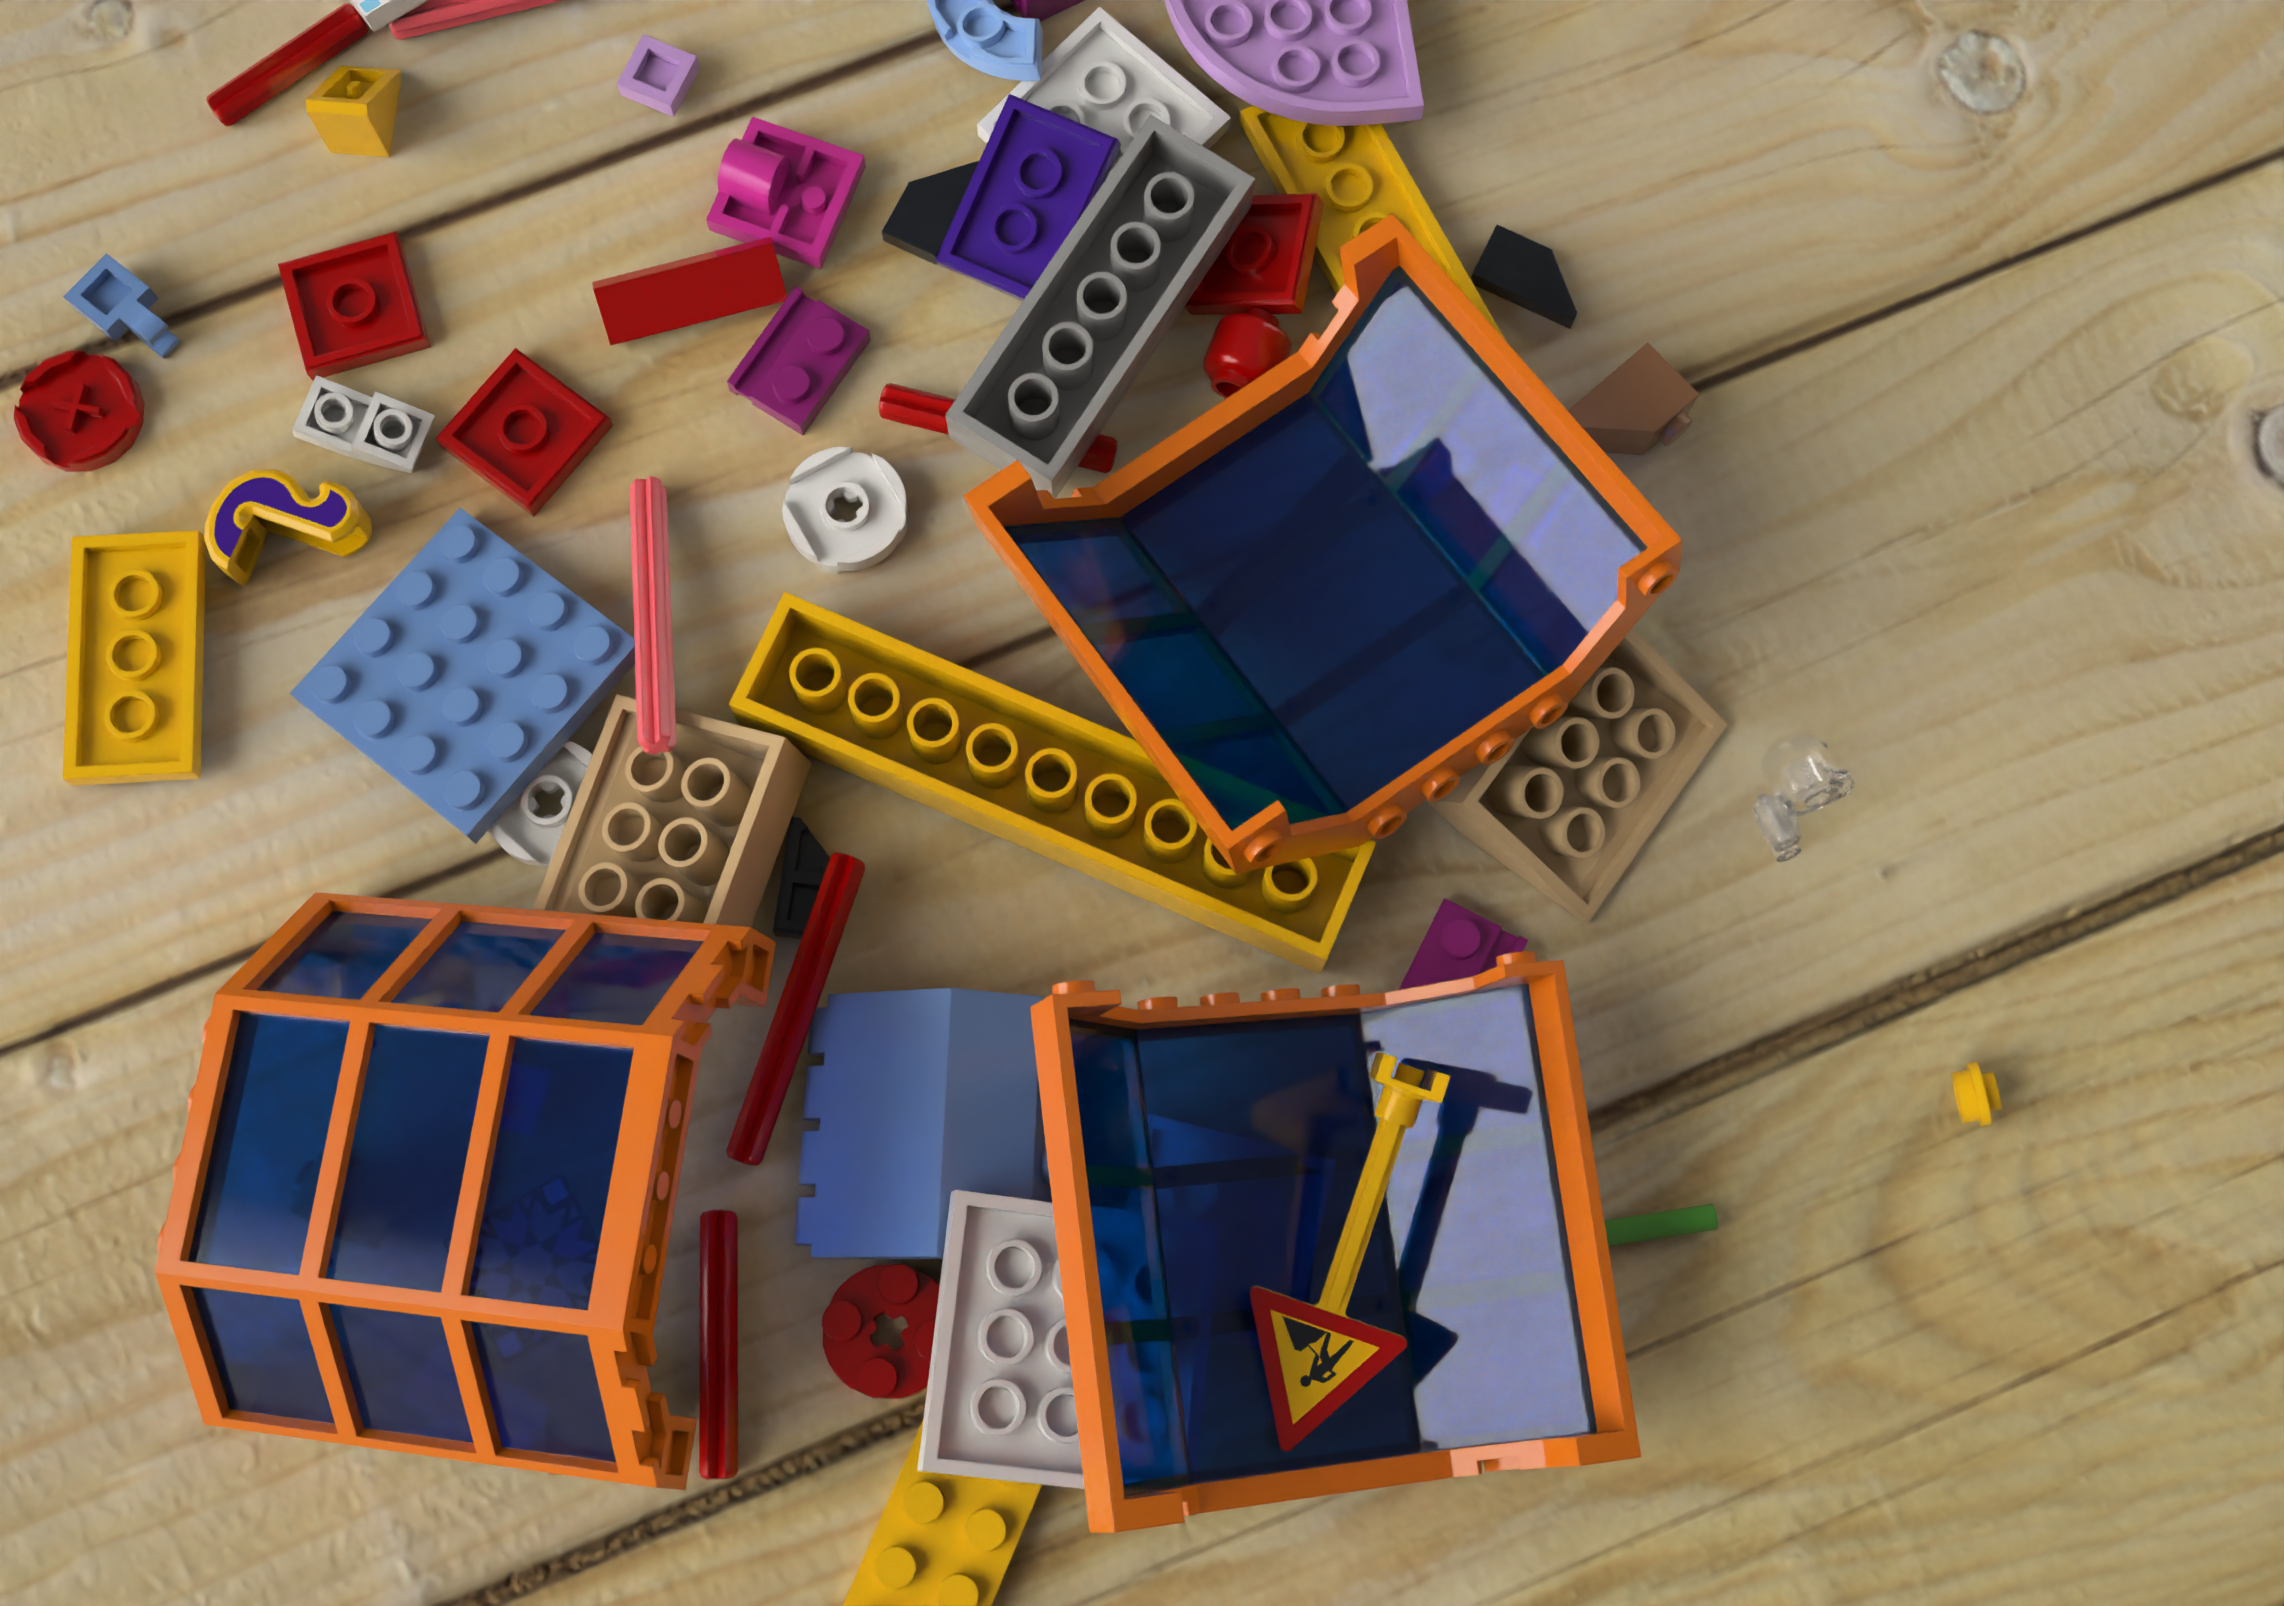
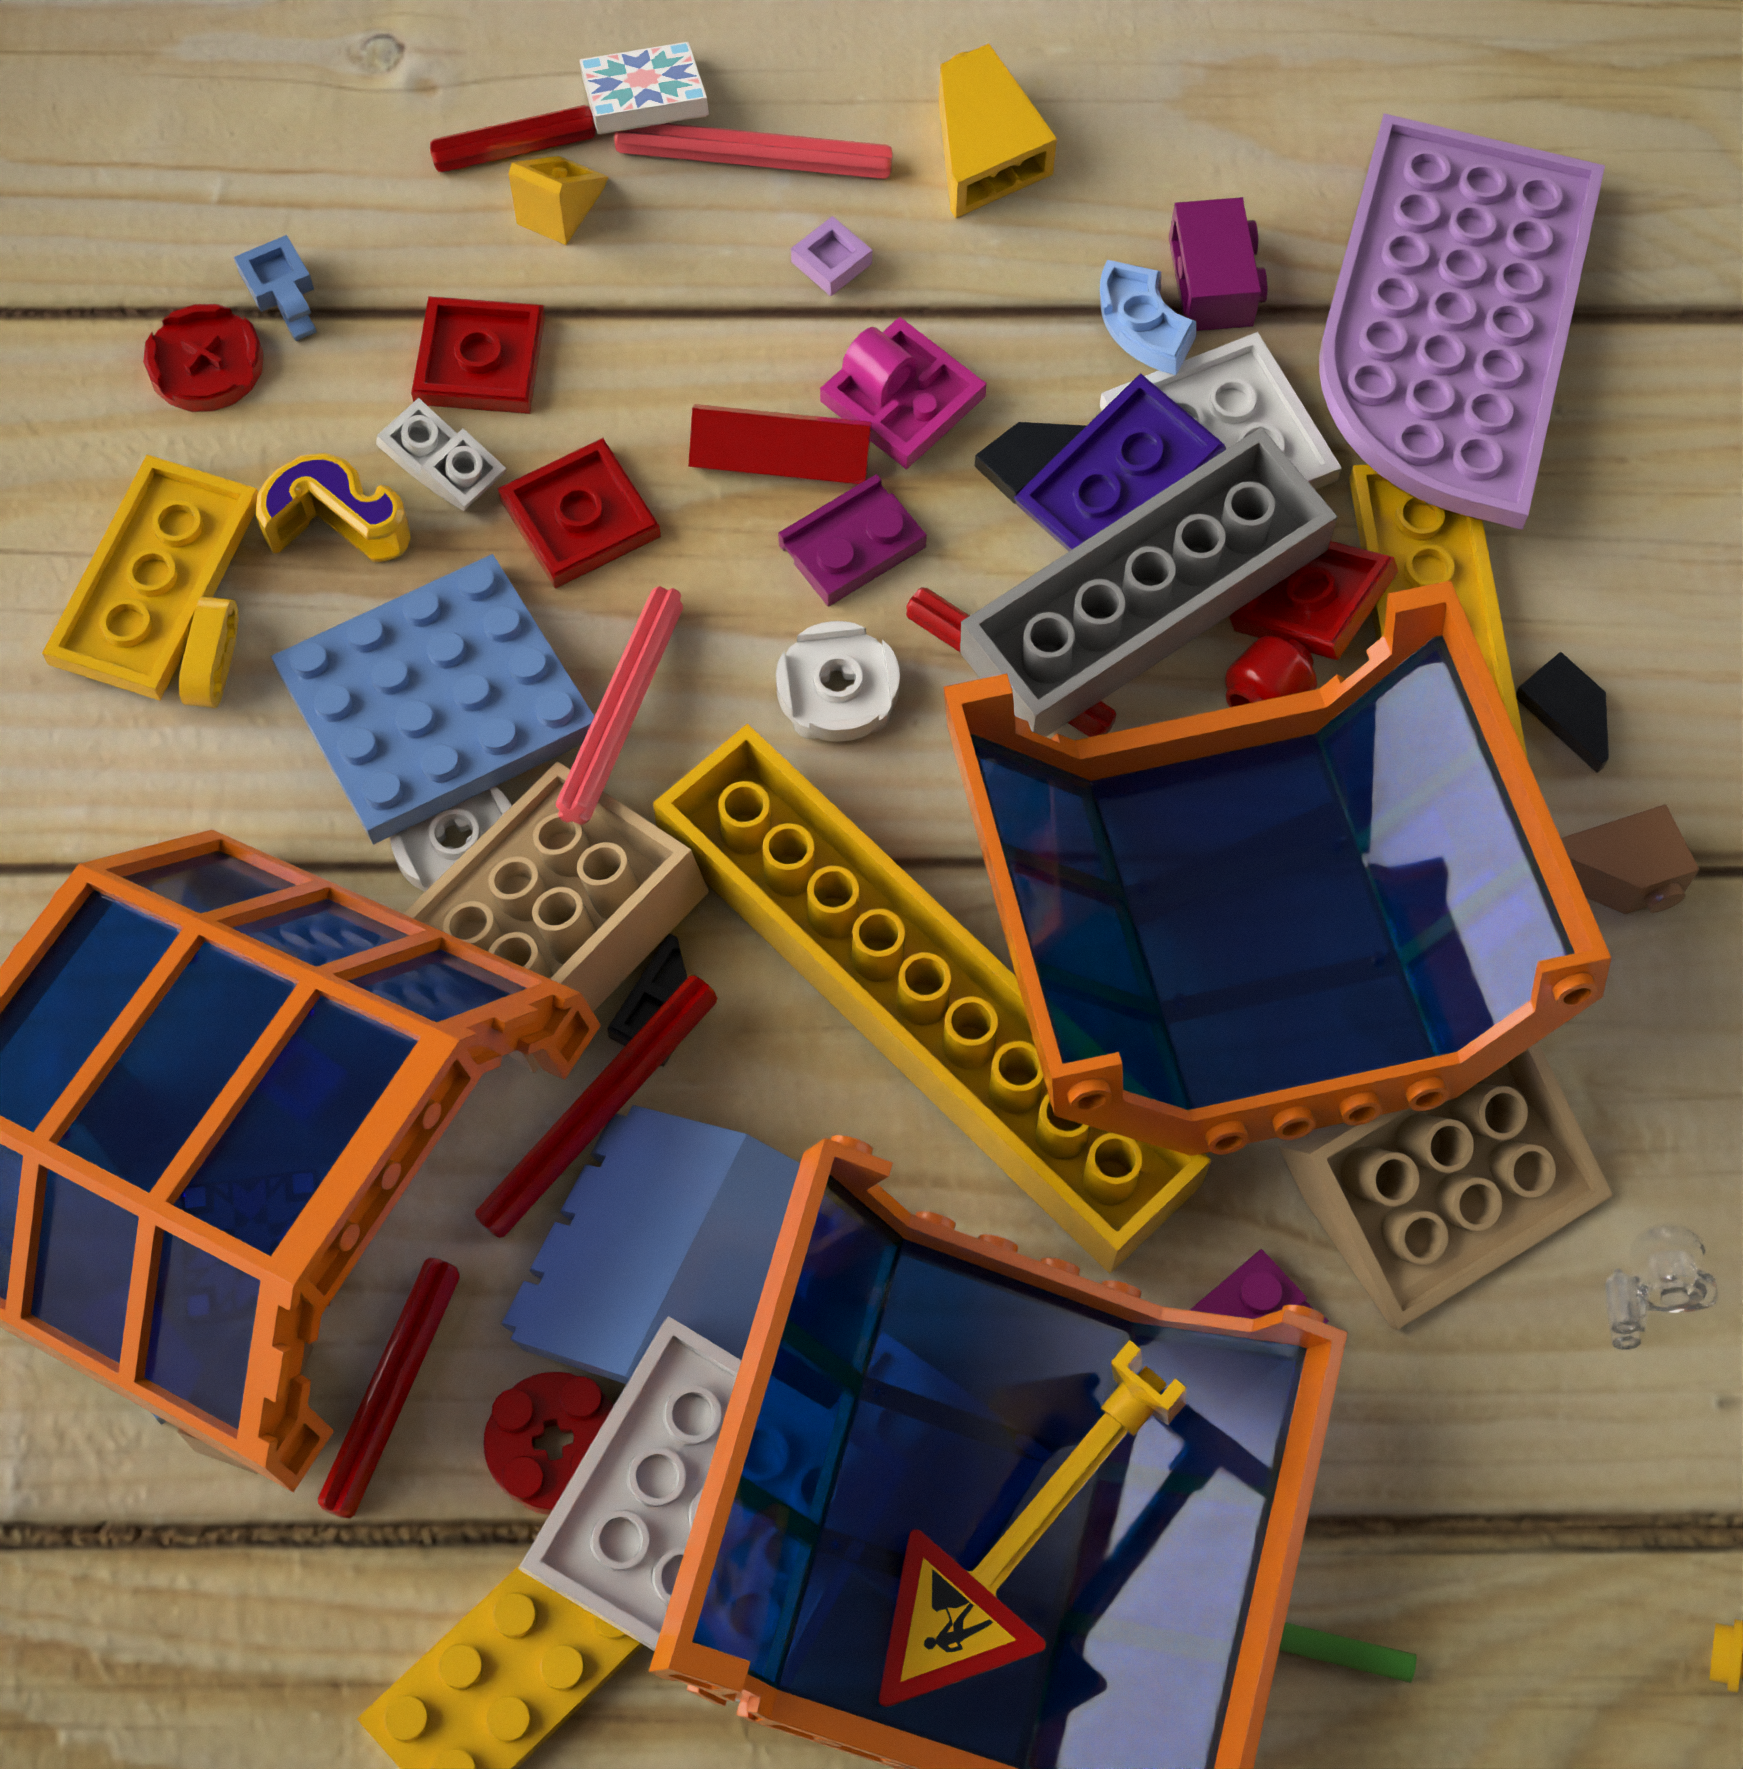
camera: 25 degrees right, 10 degrees down
(227, 713) = (208, 652): none -> yellow beam

